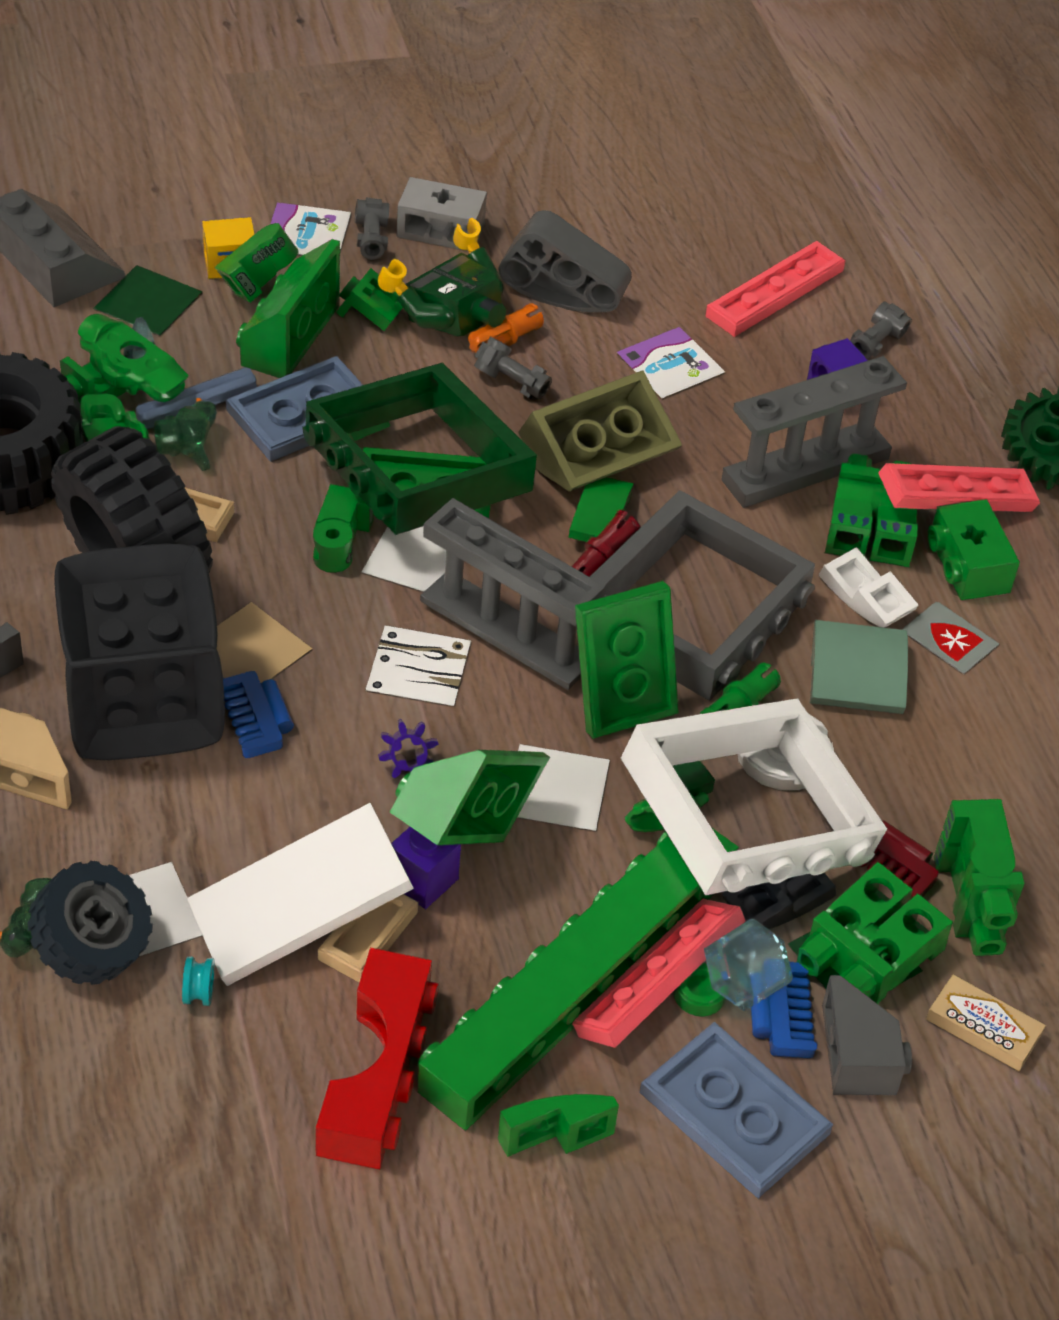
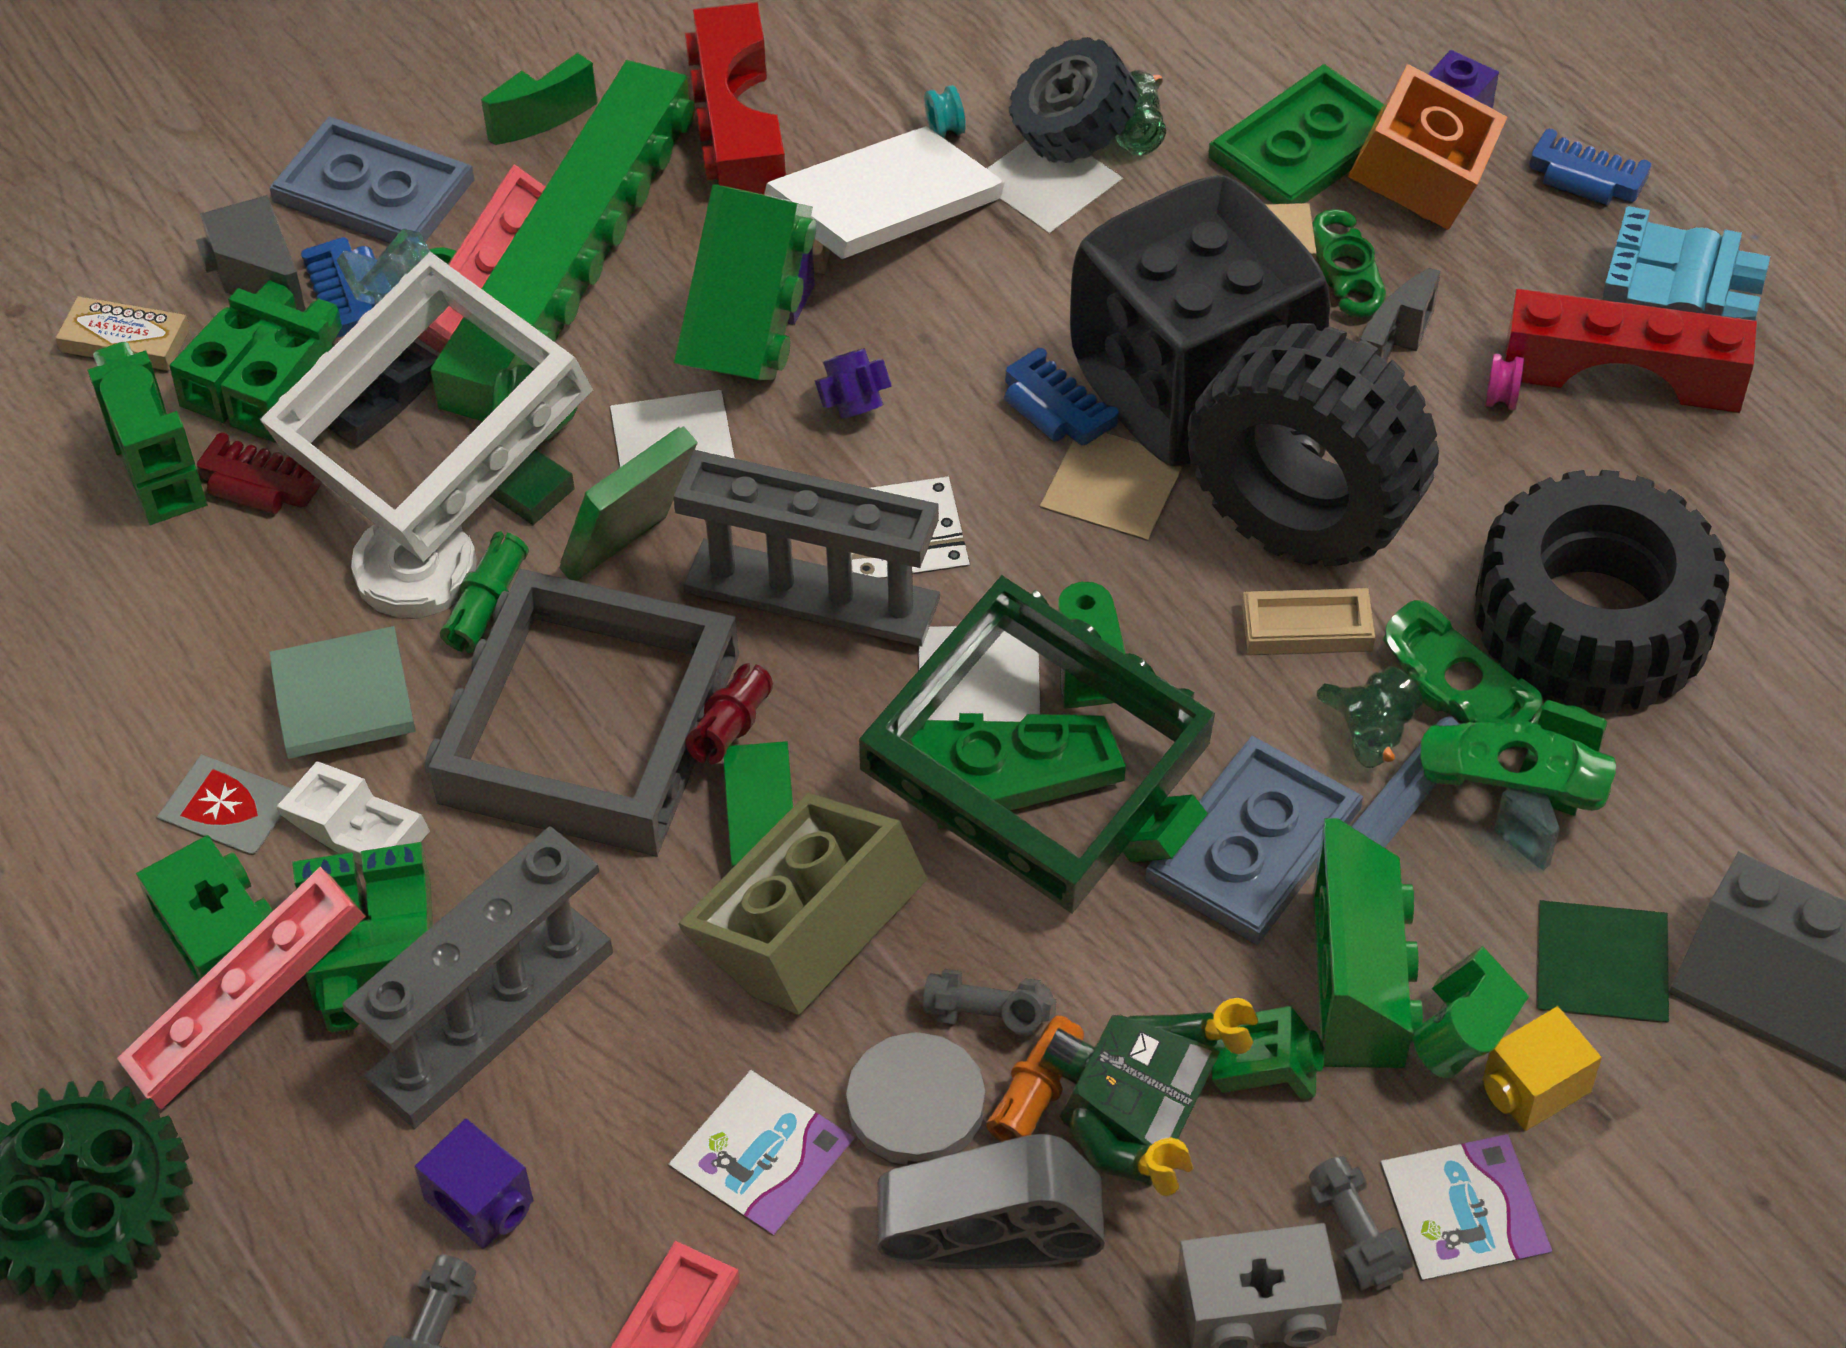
camera: 165 degrees right, 5 degrees up
(575, 349) = (915, 1098): none -> light grey tile

